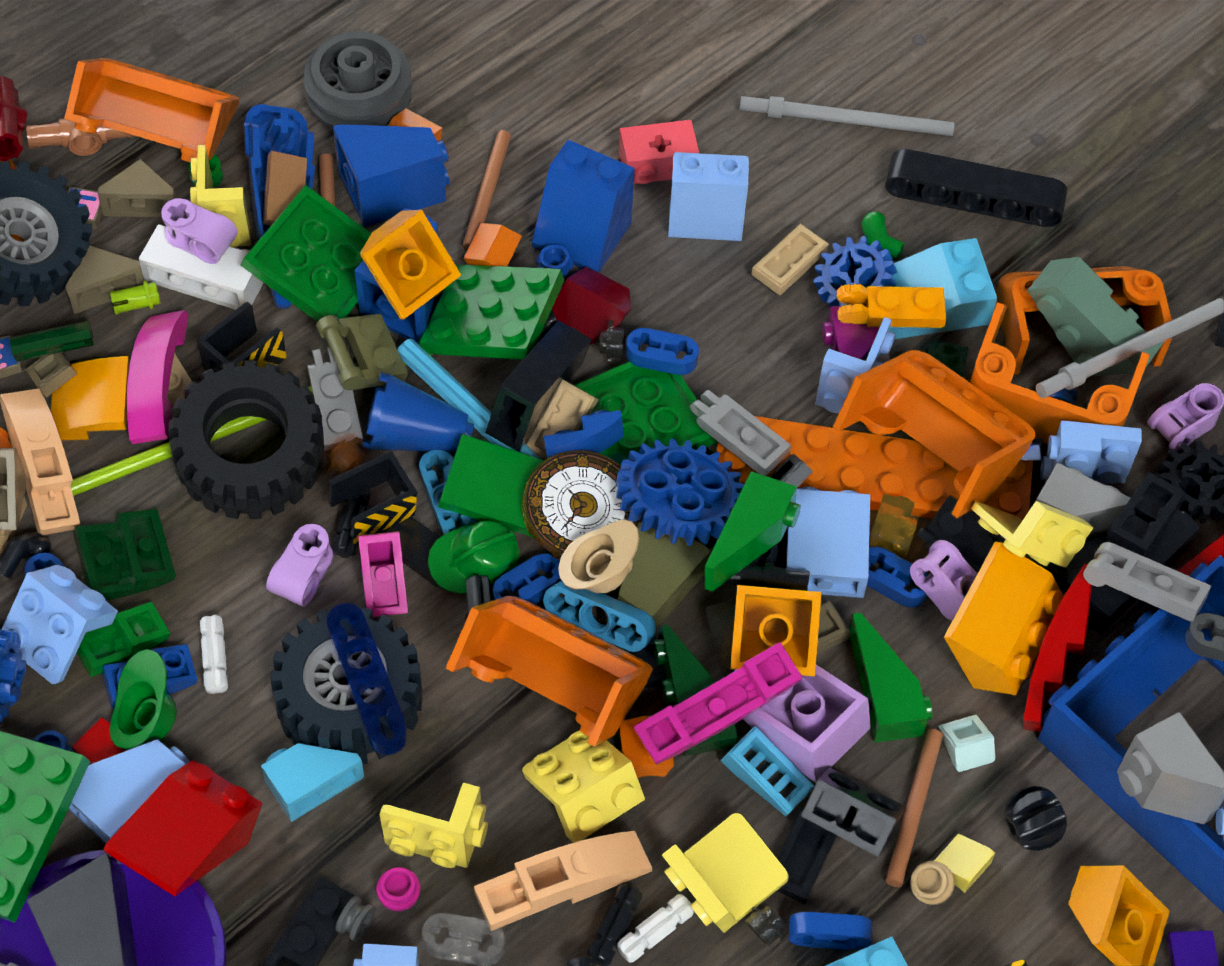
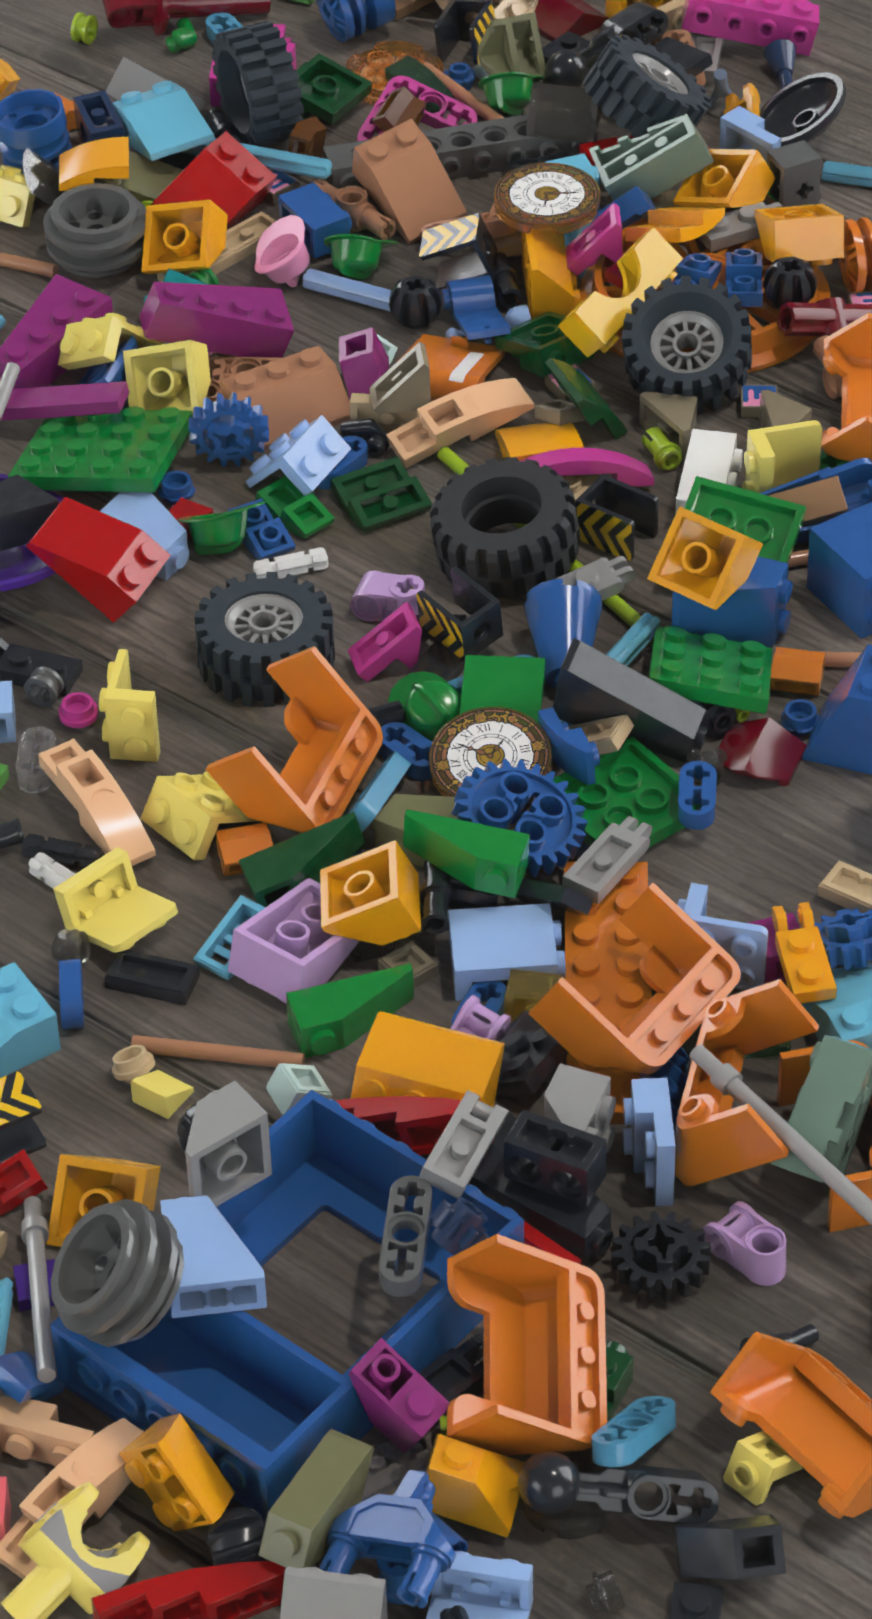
camera: 85 degrees right, 15 degrees down
(197, 230) = (724, 447): lavender piece -> none
(309, 776) = (169, 635): medium azure slope -> none
(345, 456) = (513, 606): clear orange plate -> none
(368, 677) = (213, 641): clear blue beam -> none
(371, 346) = (629, 601): olive plate -> none
(600, 557) = (416, 765): tan piece -> none
(718, 705) = (267, 857): dark pink slope -> none
(853, 811) = (193, 989): black brick -> none
(1043, 533) = (520, 1064): light yellow bracket -> none

